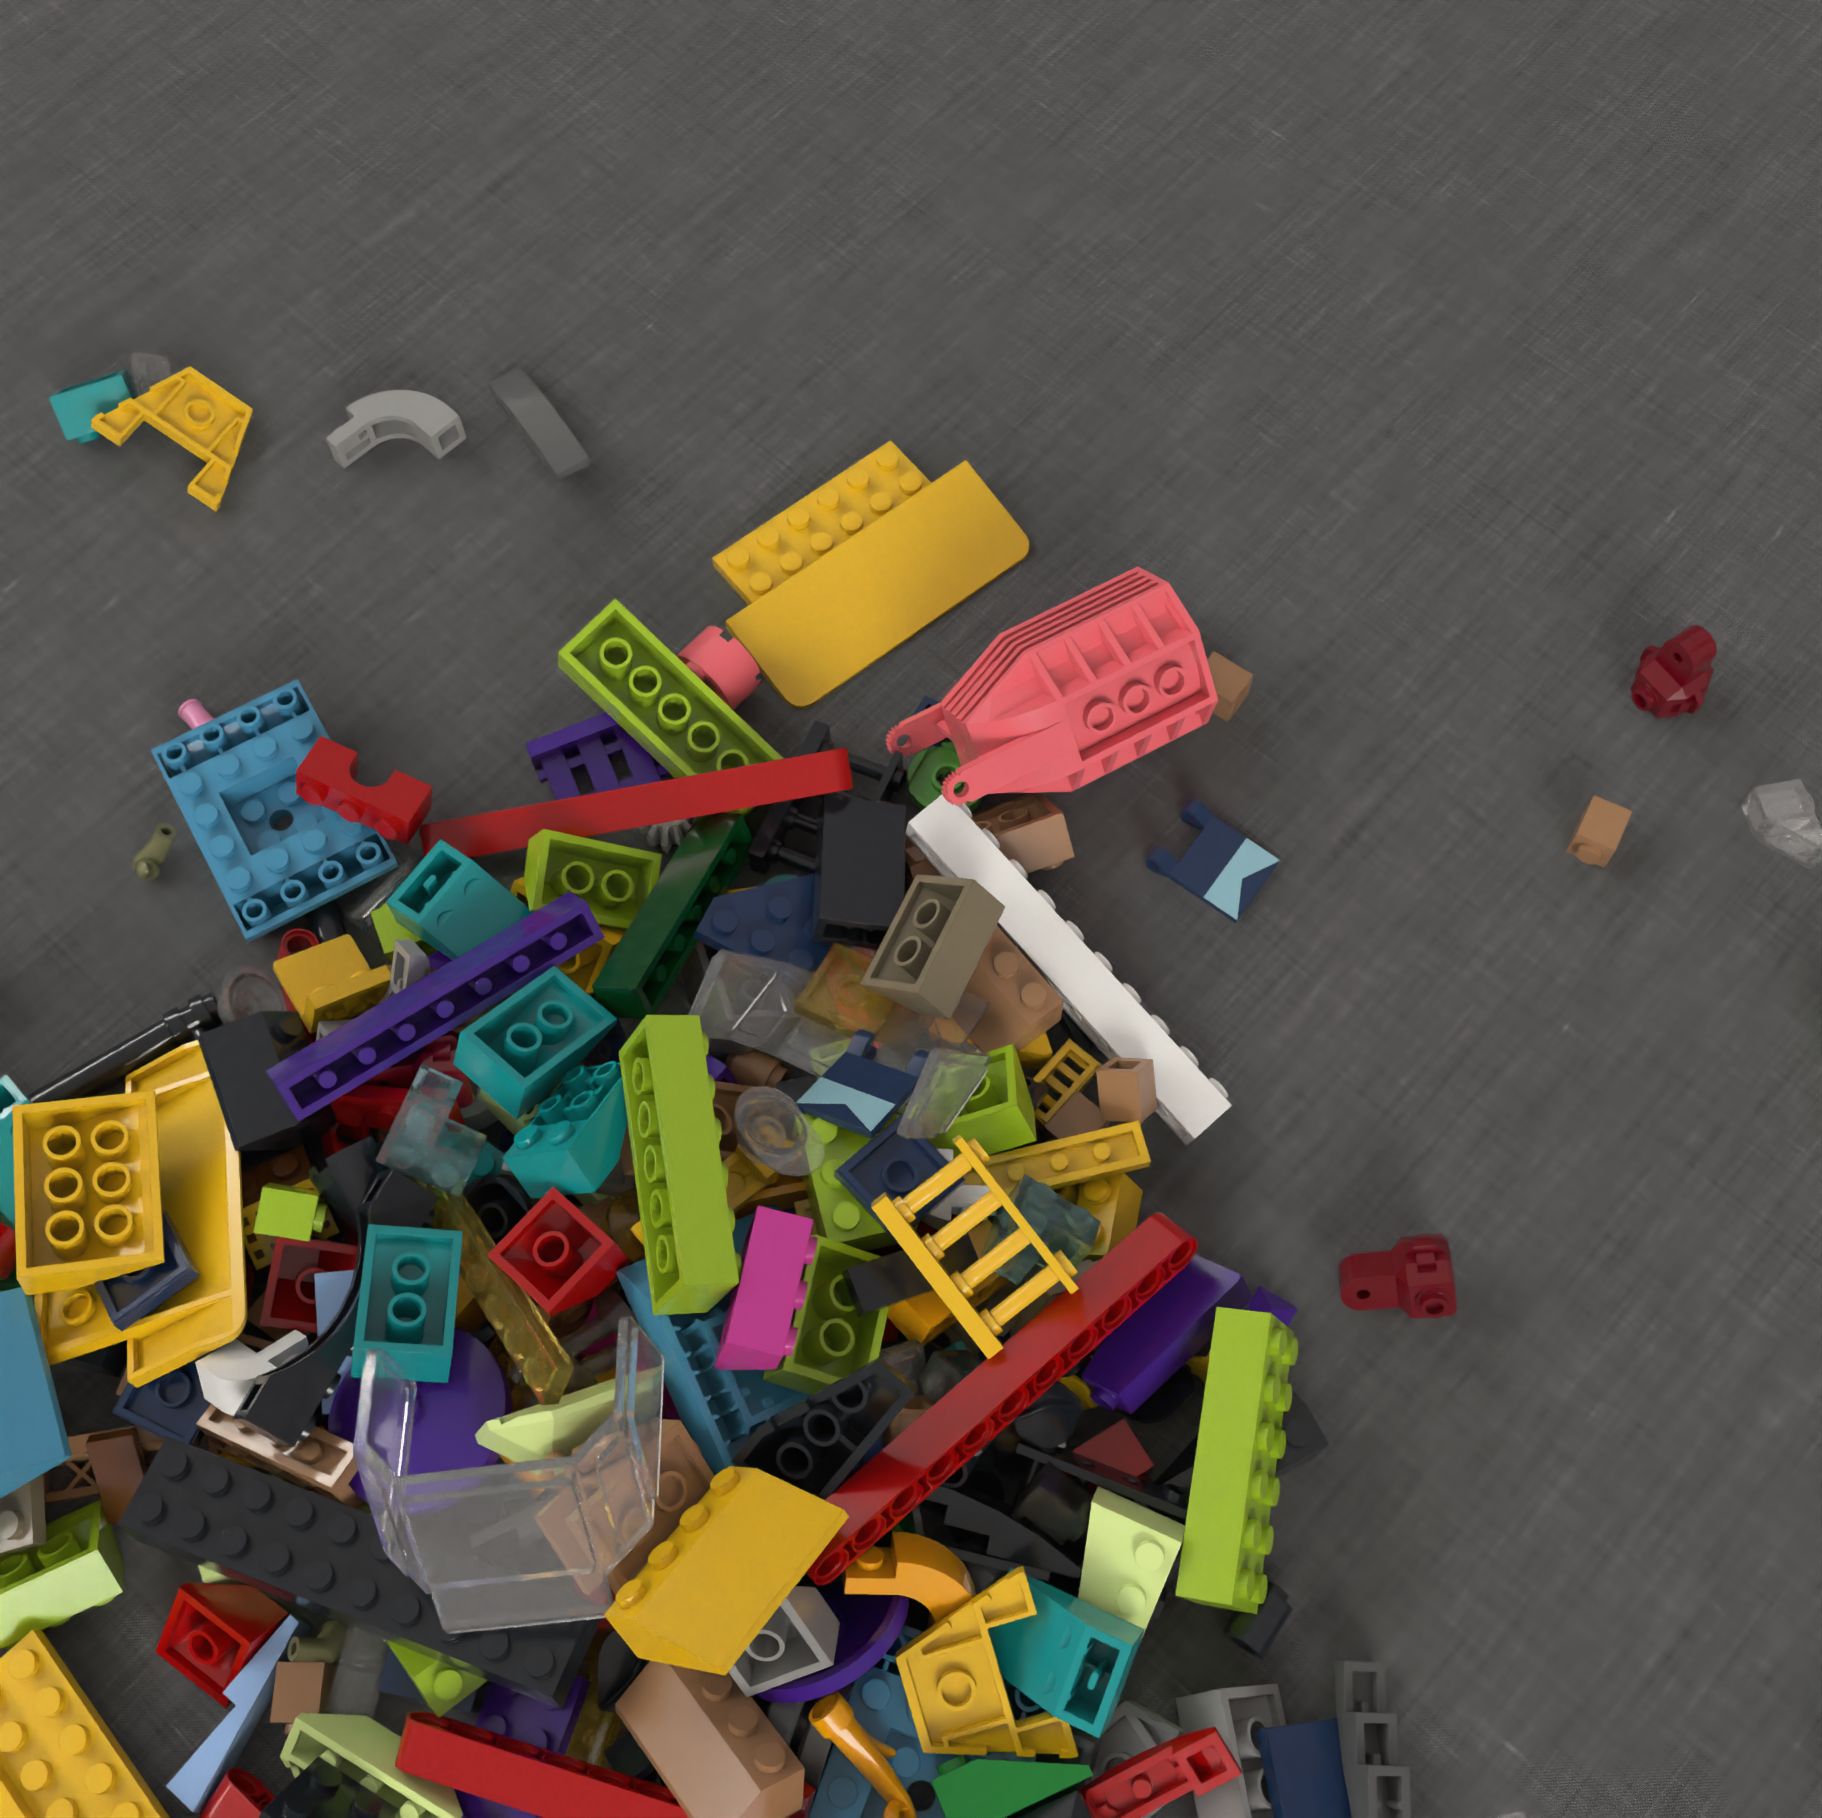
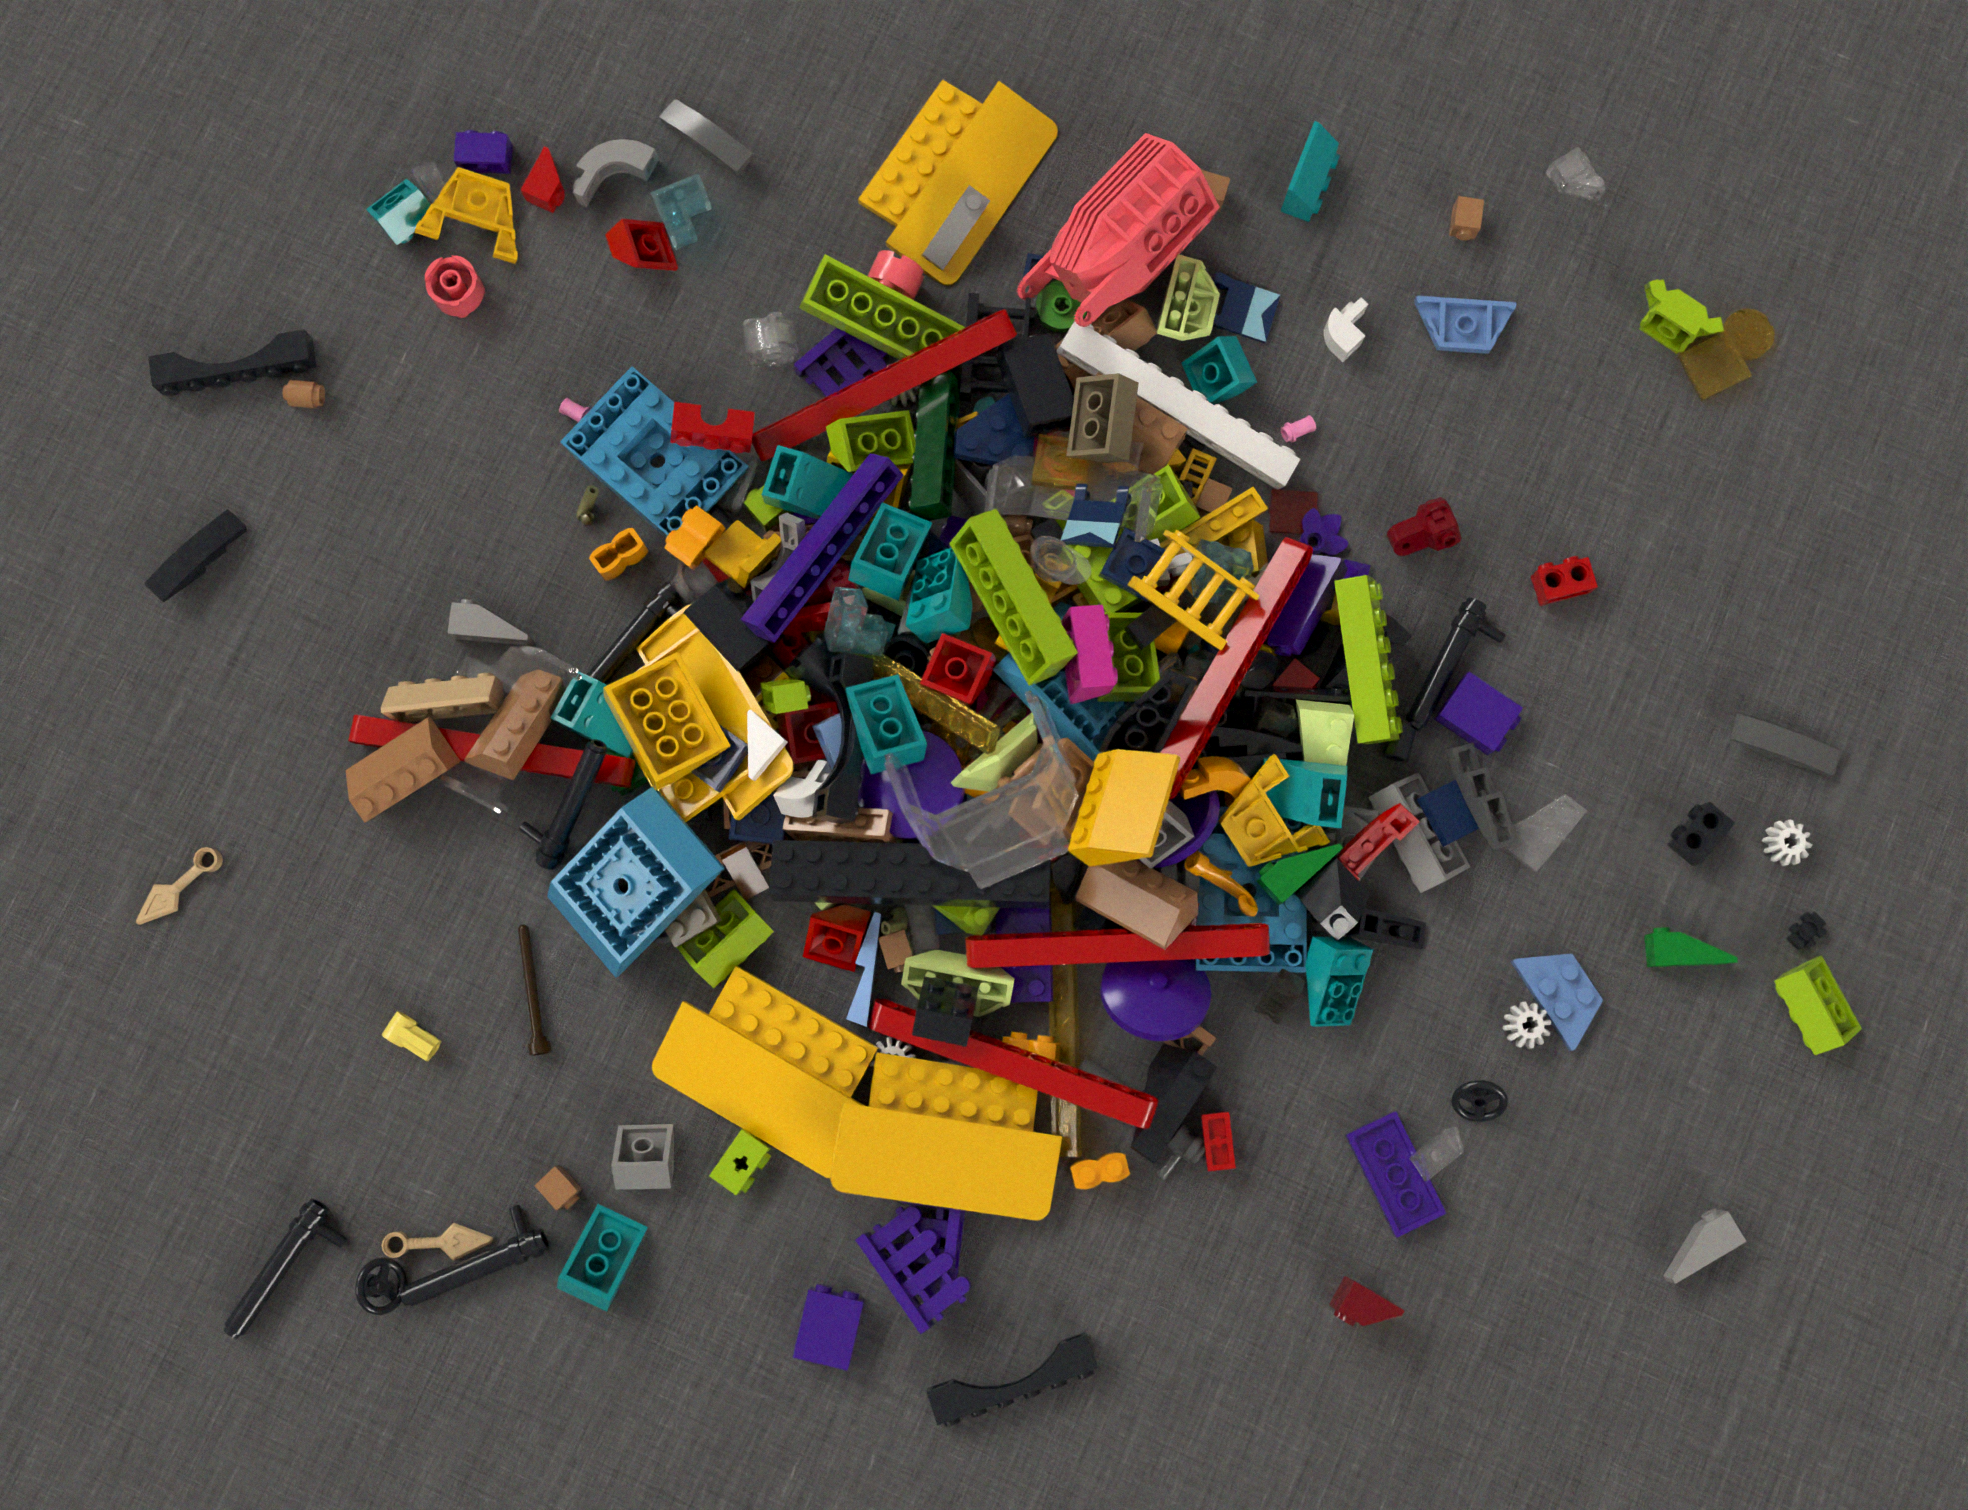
camera: 20 degrees left, 15 degrees up
(114, 511) = (454, 286): none -> coral brick
(154, 934) = (614, 557): none -> light orange brick
(213, 1277) = (763, 745): none -> white tile
(238, 362) = (483, 152): none -> dark purple brick
(266, 935) = (693, 537): none -> light orange brick
(298, 419) = (544, 184): none -> red slope
(391, 531) = (641, 244): none -> red slope
(462, 493) = (678, 204): none -> clear light blue brick
(506, 702) = (770, 340): none -> clear brick
(832, 629) = (955, 227): none -> light grey slope
(1126, 1090) = (1239, 469): medium nougat brick -> none
(1133, 824) = (1188, 301): none -> yellowish green wedge
(1151, 938) = (1219, 370): none -> teal slope
(1199, 1186) = (1288, 510): none -> clear red piece
(1239, 1233) = (1324, 532): none -> dark purple plate
(1245, 1061) = (1298, 428): none -> bright pink pin
(1356, 937) = (1340, 332): none -> white brick
(1376, 702) = (1311, 174): none -> teal slope
(1409, 1617) = (1479, 714): none -> dark purple brick
(1422, 1459) = (1463, 628): none -> black cylinder
(1554, 982) = (1463, 323): none -> medium blue wing
(1614, 1445) = (1565, 586): none -> red brick
(1675, 675) = (1486, 99): dark red piece -> none

